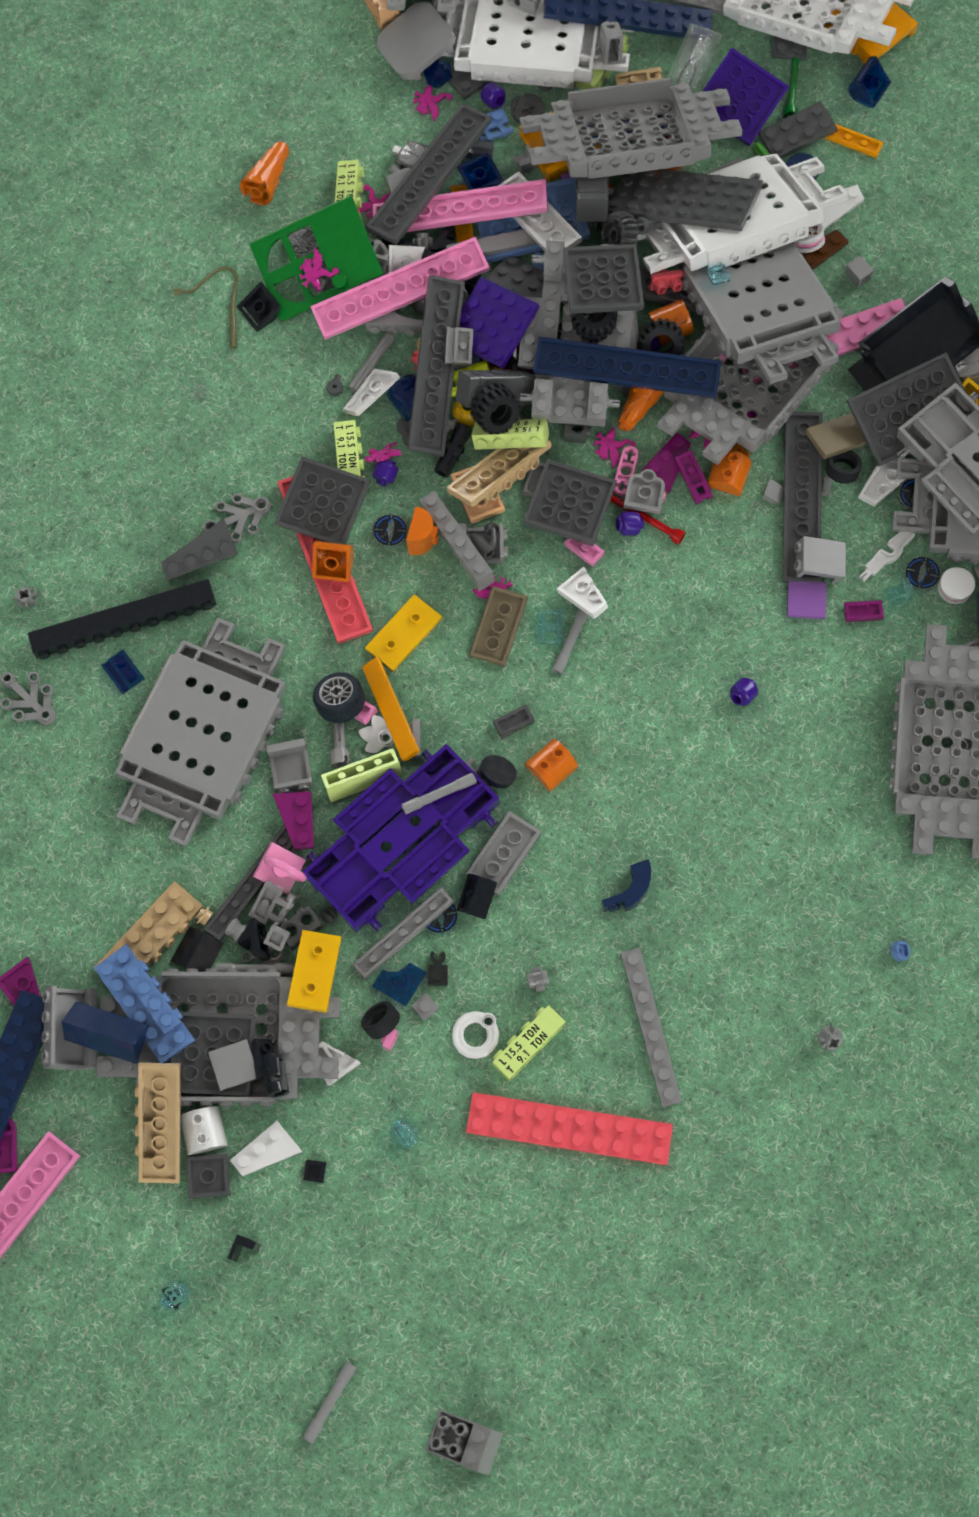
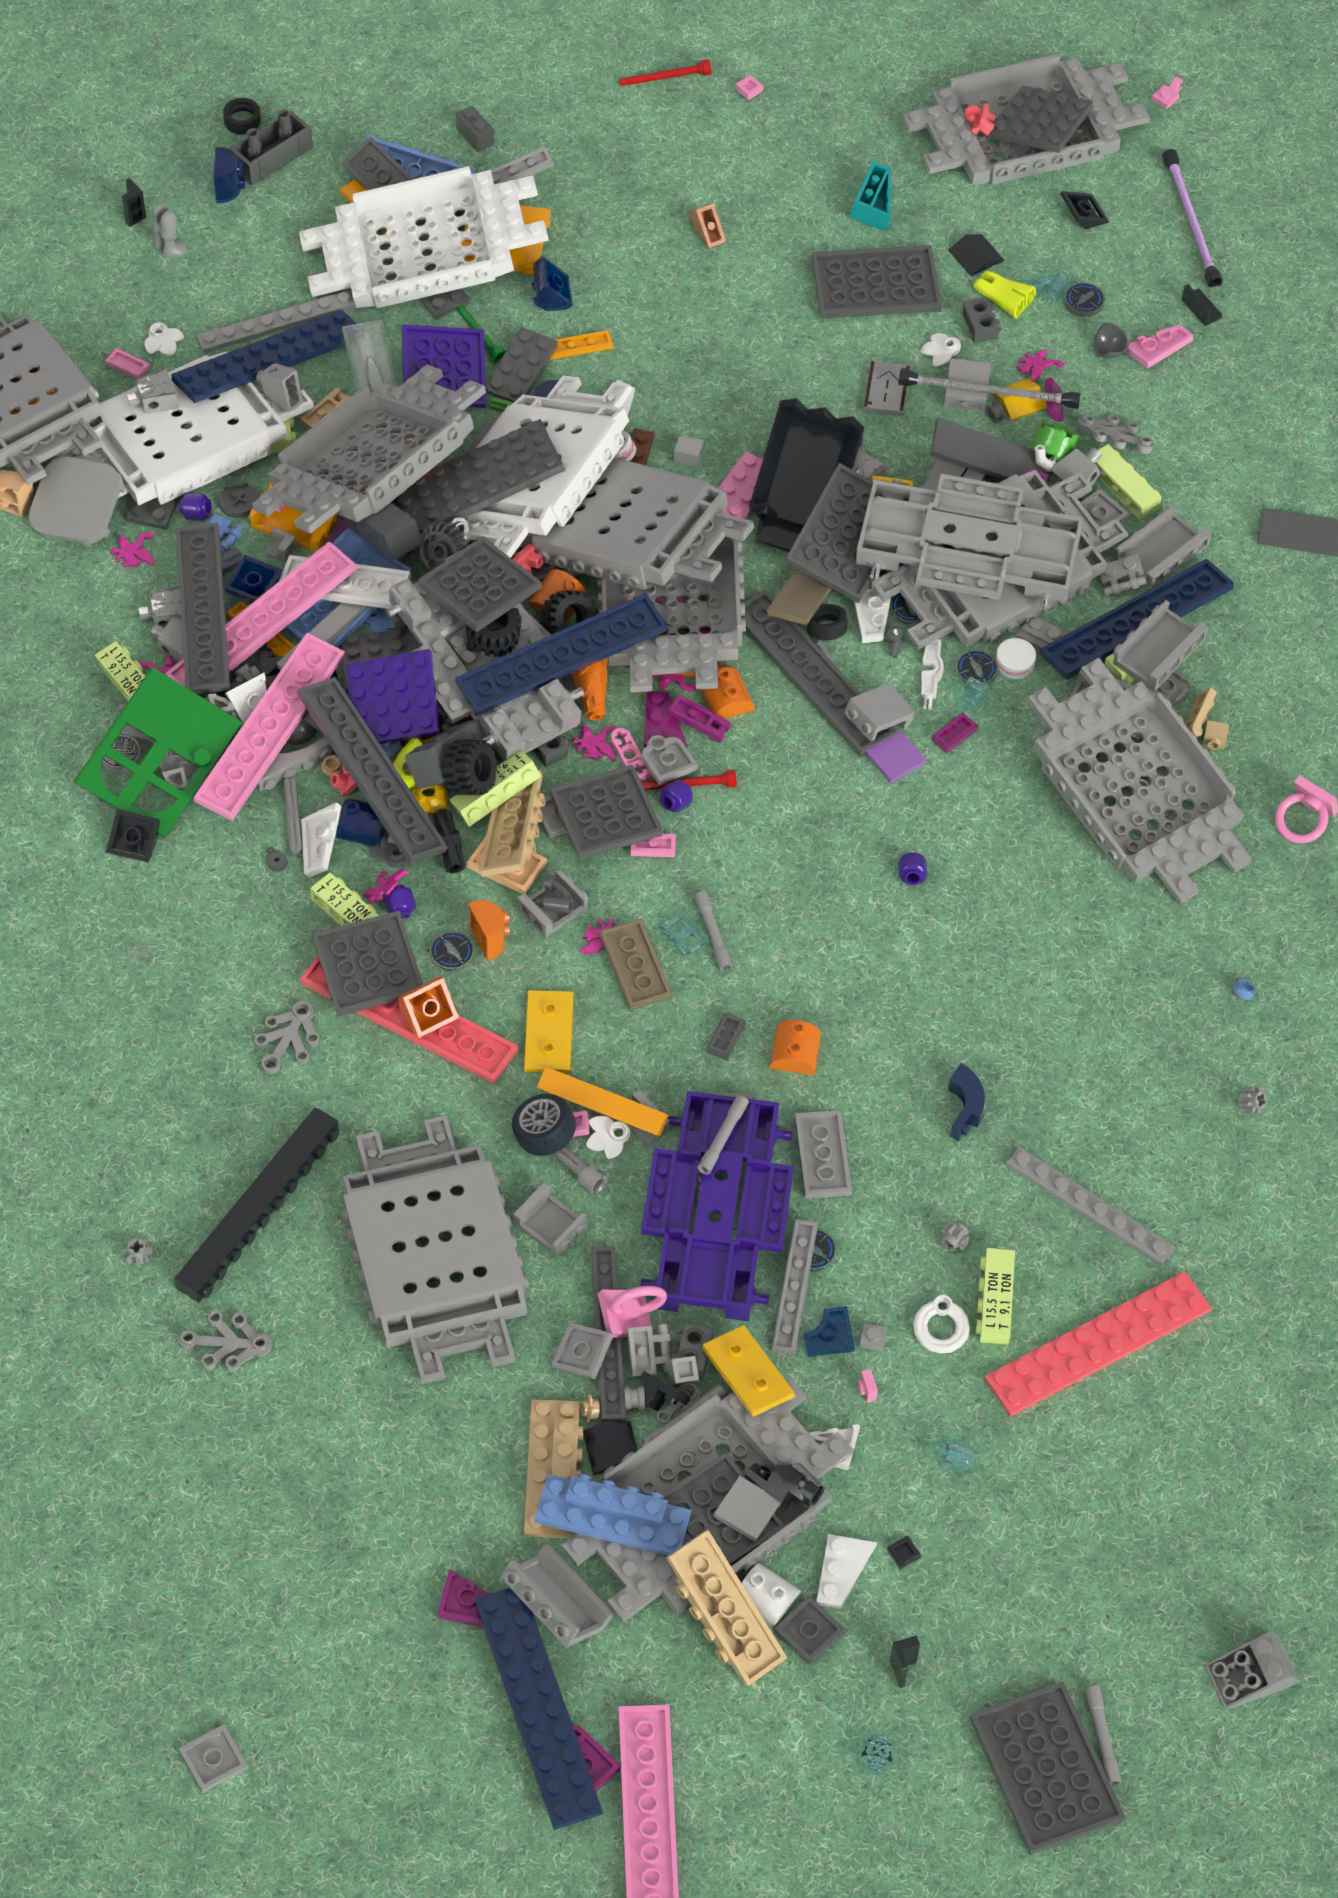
camera: 45 degrees left, 15 degrees down
(104, 1031) = (600, 1567): dark blue slope -> none
(122, 671) = (300, 1253): clear blue plate -> none
(203, 550) = (287, 1082): dark grey wedge -> none
(230, 873) = (582, 1350): none -> light grey plate
(232, 327) = (130, 883): olive piece -> none
(265, 174) = (29, 716): orange cone -> none
(273, 1394) = (1047, 1768): none -> dark grey plate
(298, 817) = (600, 1253): magenta wing -> none
(314, 273) = (169, 766): dark pink piece -> none
(327, 918) = (709, 1324): dark grey hinge -> none
(359, 775) = (627, 1178): yellowish green brick -> none
(380, 1020) = (855, 1377): black tyre -> none
(438, 73) = (123, 518): clear blue brick -> none
(438, 973) = (856, 1300): pearl dark grey plate -> none
(459, 346) = (380, 737): light grey plate -> none
(468, 555) = (568, 921): light grey arch -> none
(477, 896) = (833, 1204): black panel -> none
(497, 771) = (754, 1085): black tile -> none
(583, 593) = (689, 882): white wing -> none
(718, 274) = (575, 522): clear light blue plate -> none
(774, 492) = (782, 686): light grey slope -> none
(884, 509) = (894, 636): none -> dark grey plate

